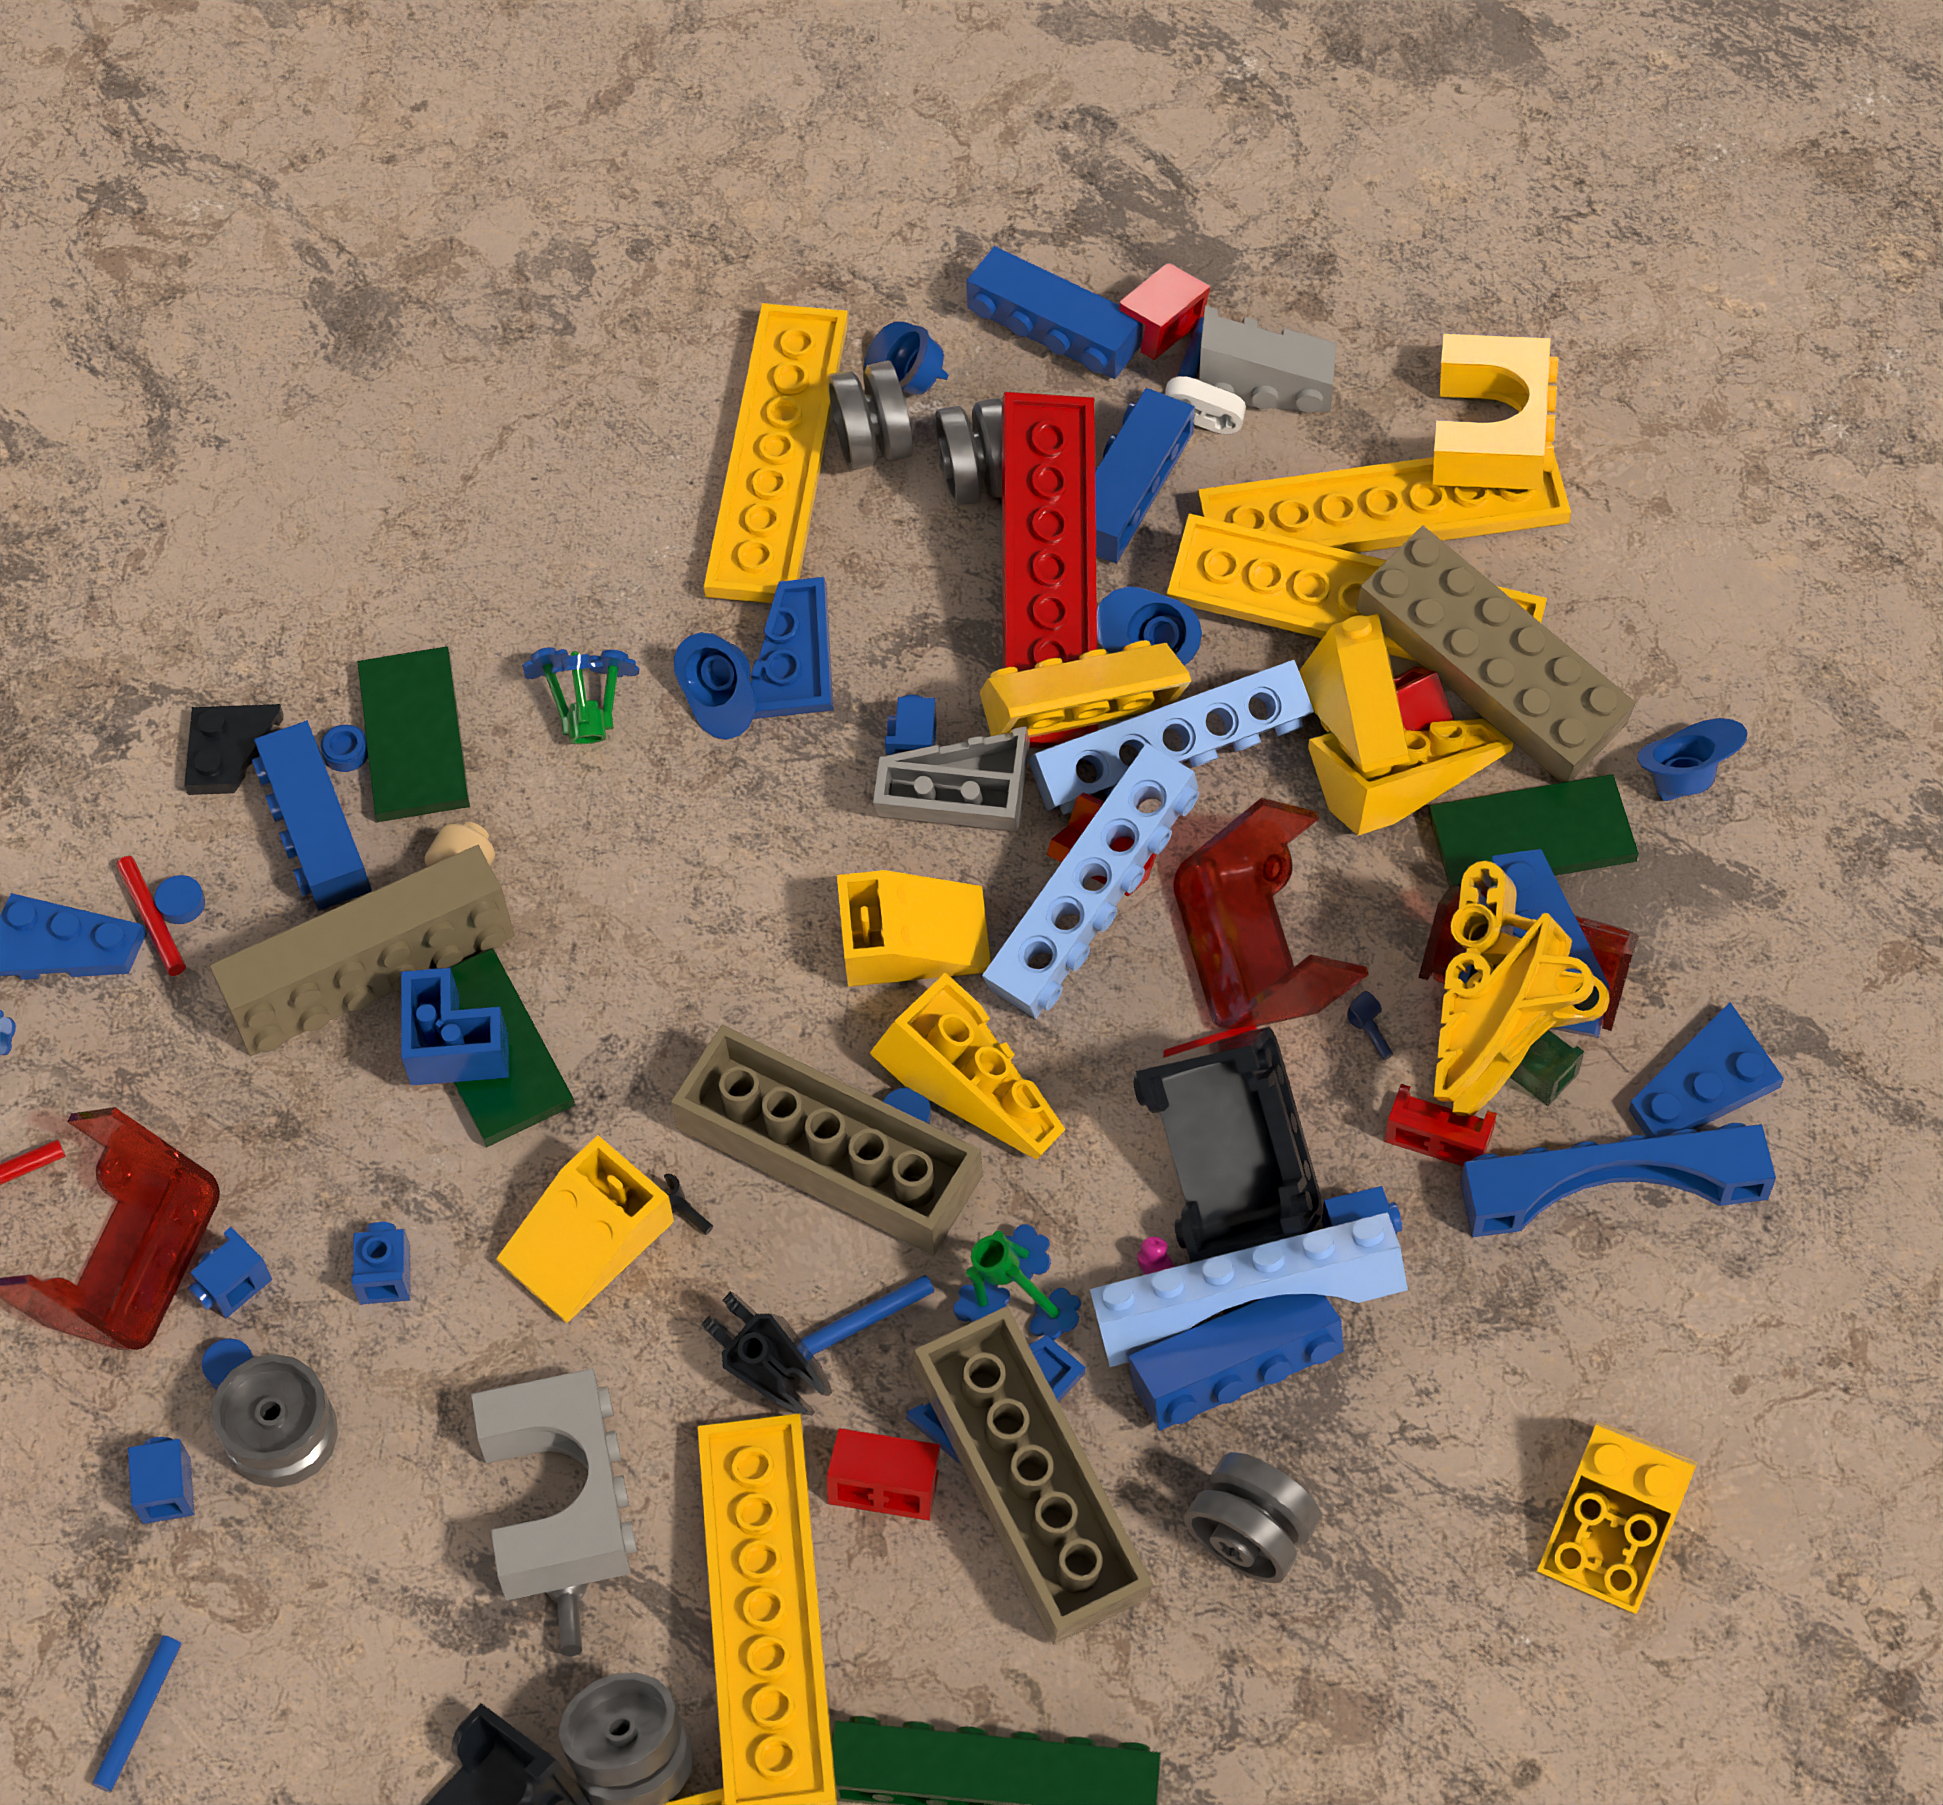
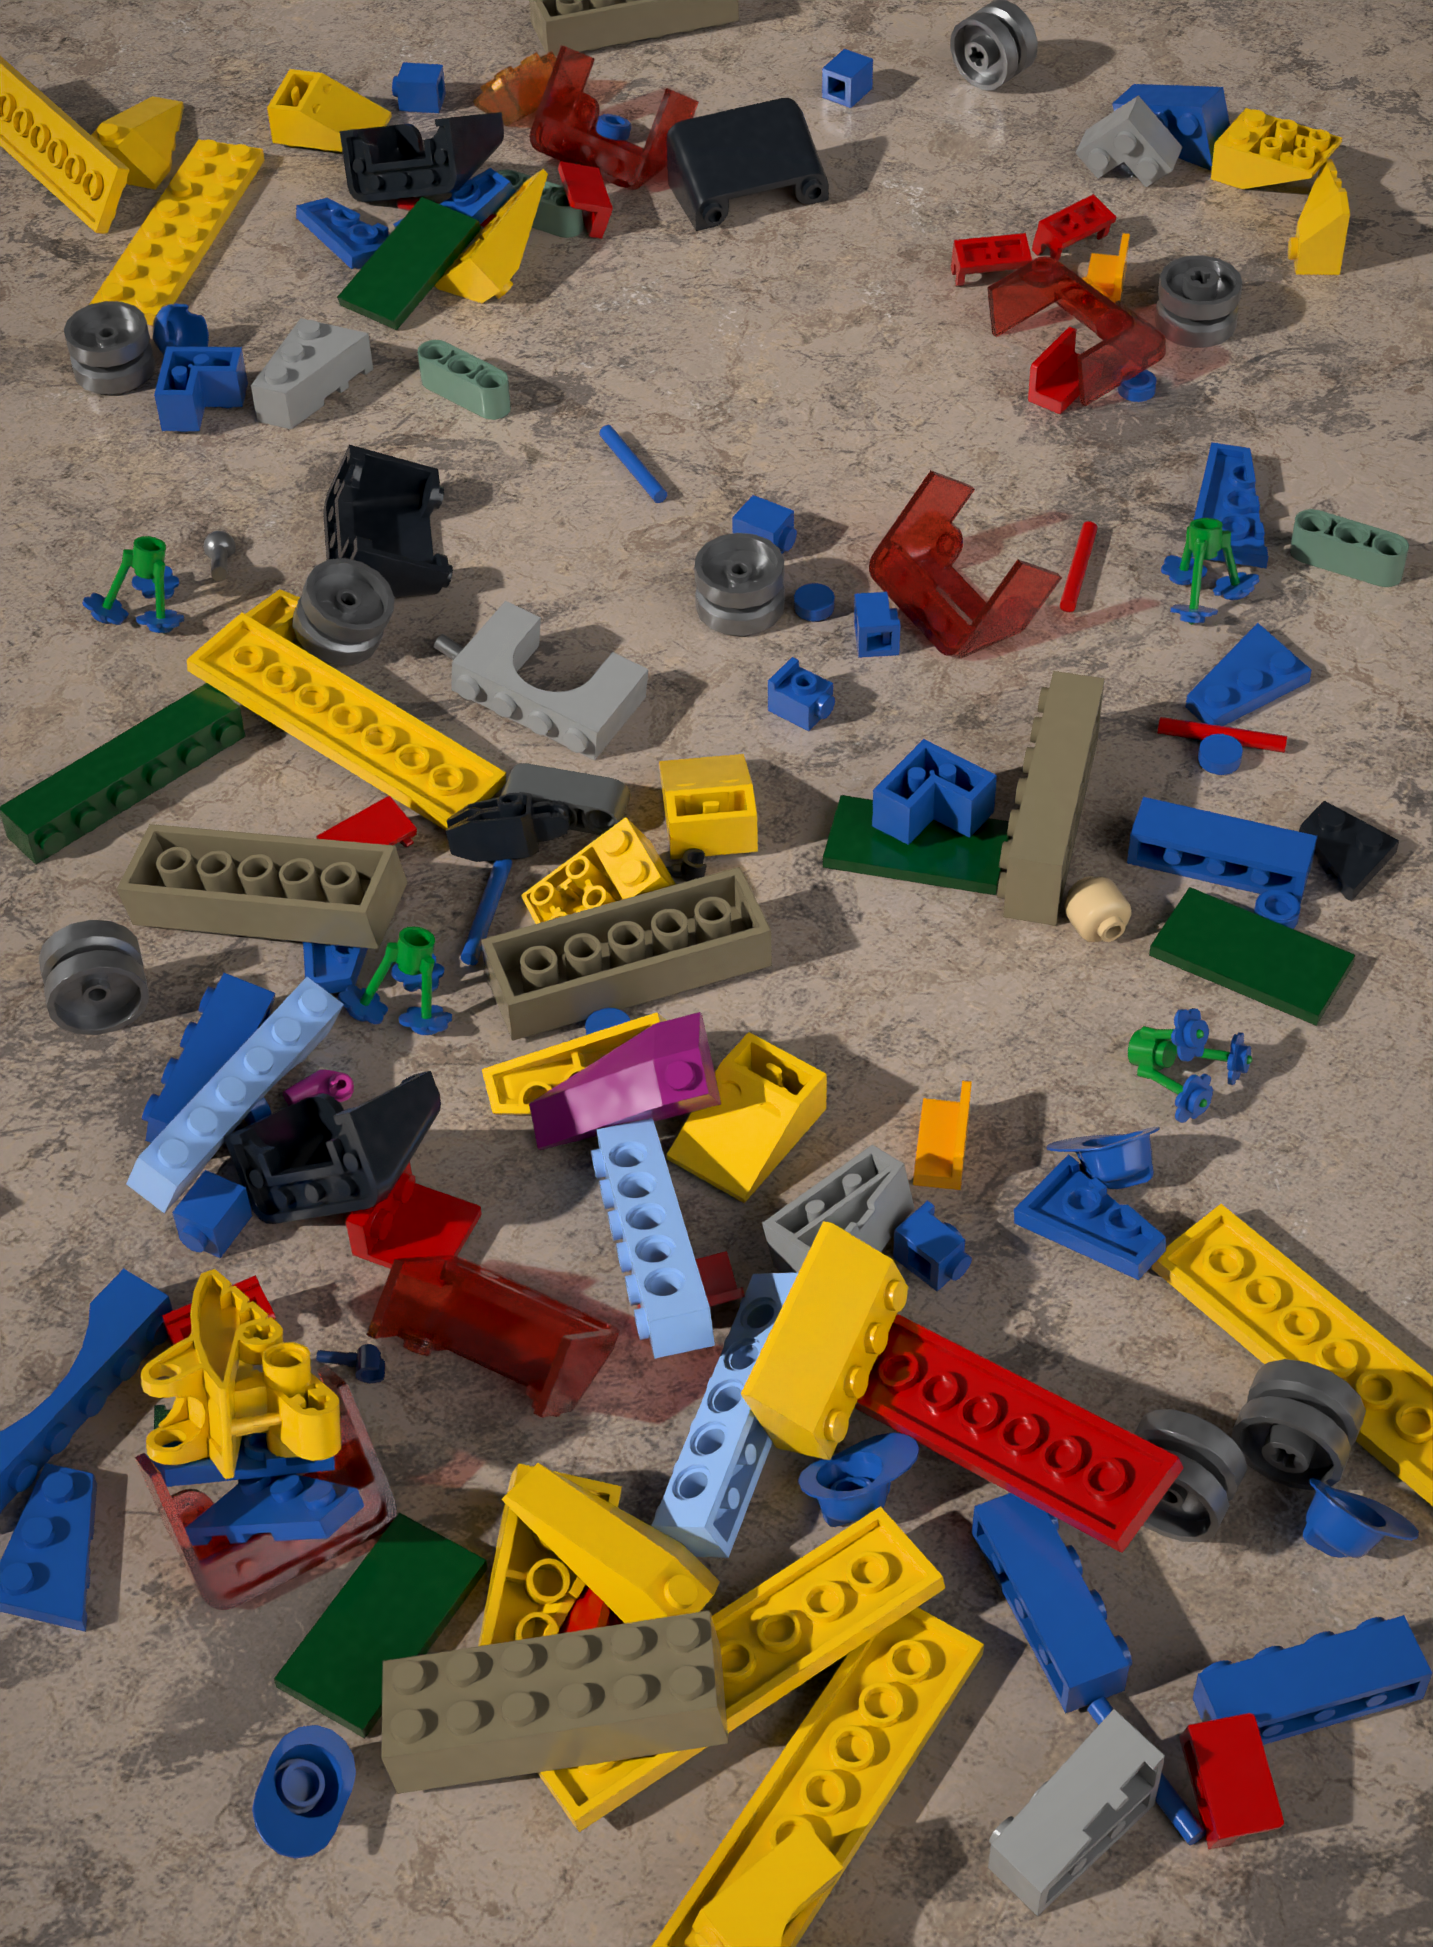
camera: 130 degrees right, 10 degrees down
(685, 1354) = (593, 800): none -> dark grey beam
(769, 1229) = (605, 871): none -> yellow slope
(798, 797) = (942, 1141): none -> light orange panel
(963, 990) = (647, 1077): none -> magenta wedge
(1213, 406) = (1076, 1725): white beam -> none

